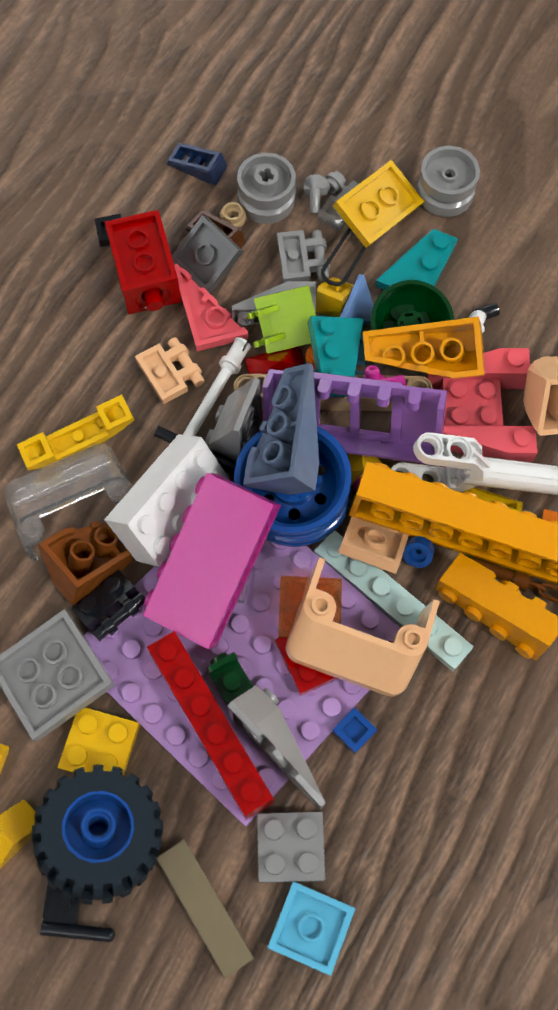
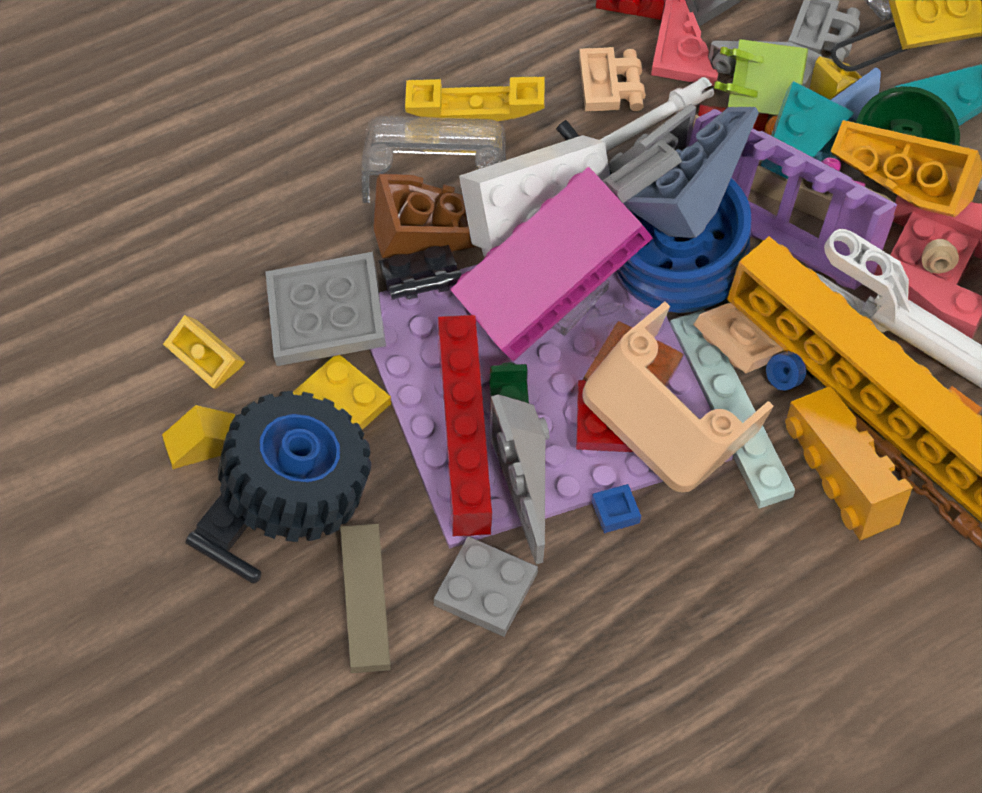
camera: 25 degrees right, 10 degrees down
(246, 452) = (642, 170): none -> light grey tile
(311, 928) = (465, 666): medium azure plate -> none
(486, 409) = (939, 256): none -> tan plate

